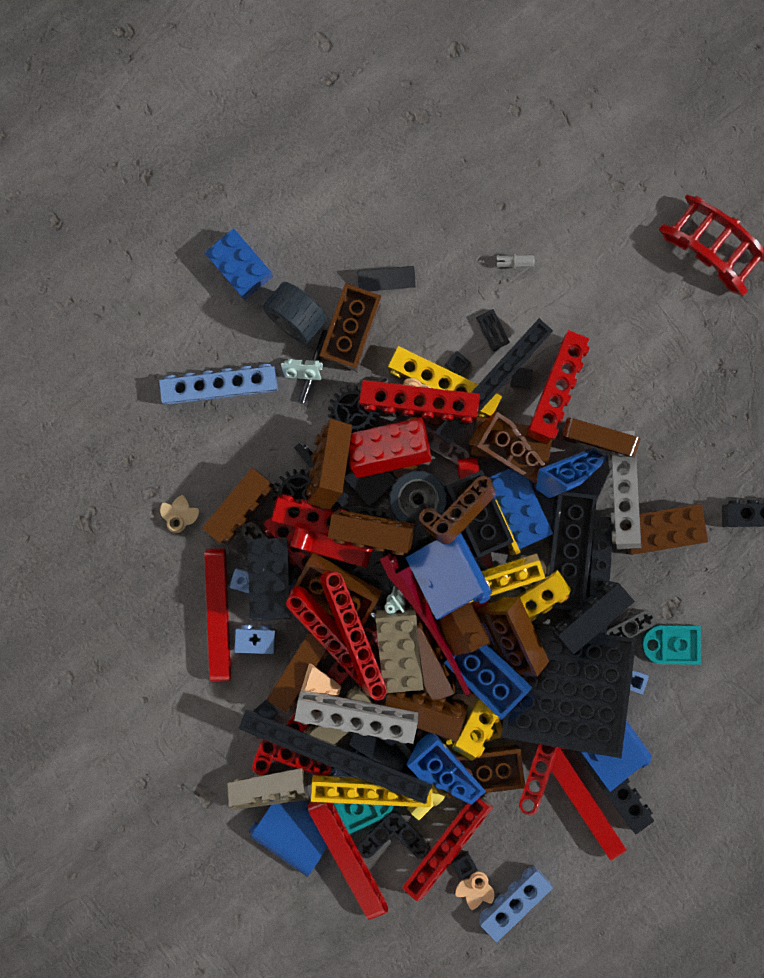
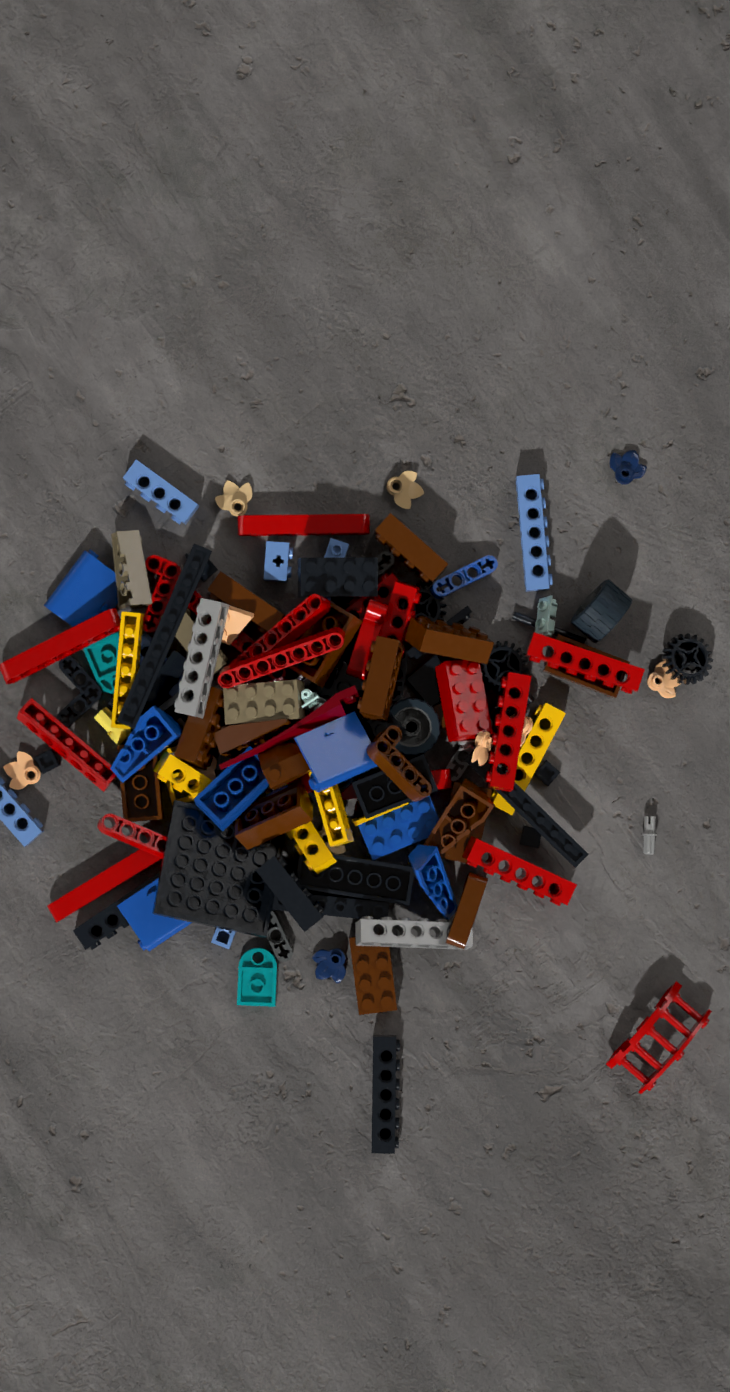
camera: 95 degrees right, 0 degrees up
(148, 294) = (629, 464): none -> dark blue plate
(169, 785) = (139, 471): none -> medium blue brick
(190, 685) = (234, 495): none -> tan plate
(239, 264) = (653, 556): blue brick -> none
(265, 451) = (464, 577): none -> blue beam
(337, 219) = (693, 663): none -> black gear
(357, 278) = (633, 673): none -> red brick
(360, 248) = (665, 685): none -> light nougat plate
(387, 278) = (635, 710): black slope -> none
(433, 425) = (483, 743): none -> light nougat plate
(434, 443) = (466, 745): none -> light grey bush
(485, 315) = (565, 816): black tile -> none
(658, 574) = (328, 967): none -> dark blue plate

